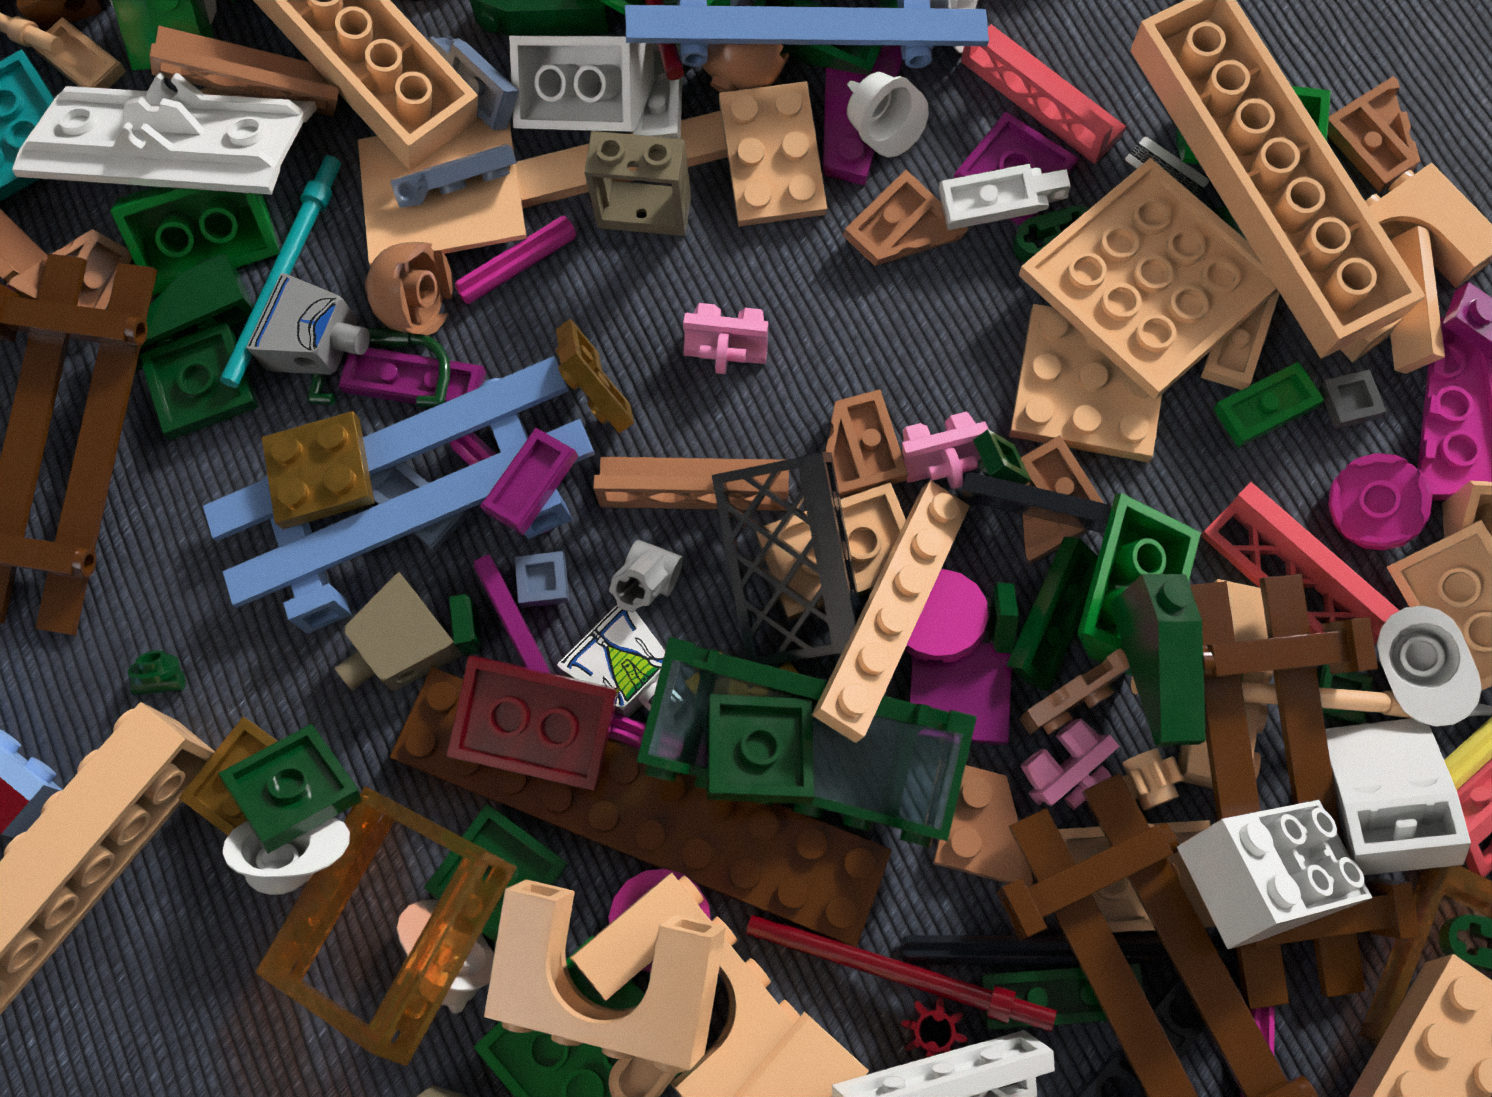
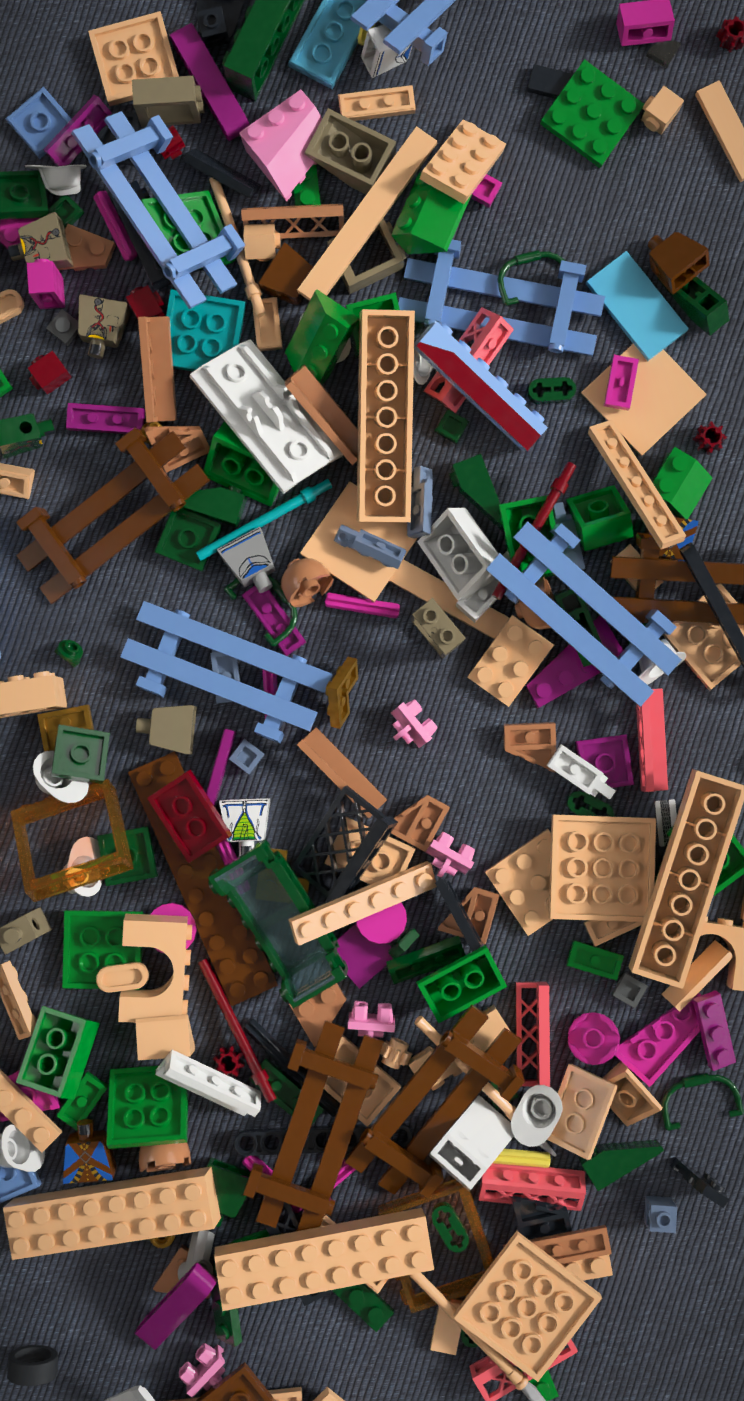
camera: 40 degrees right, 15 degrees up
(317, 470) = (199, 632): pearl gold plate -> none
(465, 624) = (201, 747): dark green tile -> none
(529, 481) = (273, 721): magenta tile -> none
(535, 991) = (102, 919): light nougat arch -> none
(645, 576) = (285, 796): light grey piece -> none
(759, 749) = (260, 909): dark green plate -> none
(887, 113) = (570, 691): white piece -> none
(1000, 458) = (464, 883): dark green plate -> none
(1088, 688) = (402, 997): nougat wing -> none
(1165, 655) = (435, 1023): dark green slope -> none
(1272, 871) = (395, 1131): white slope -> none

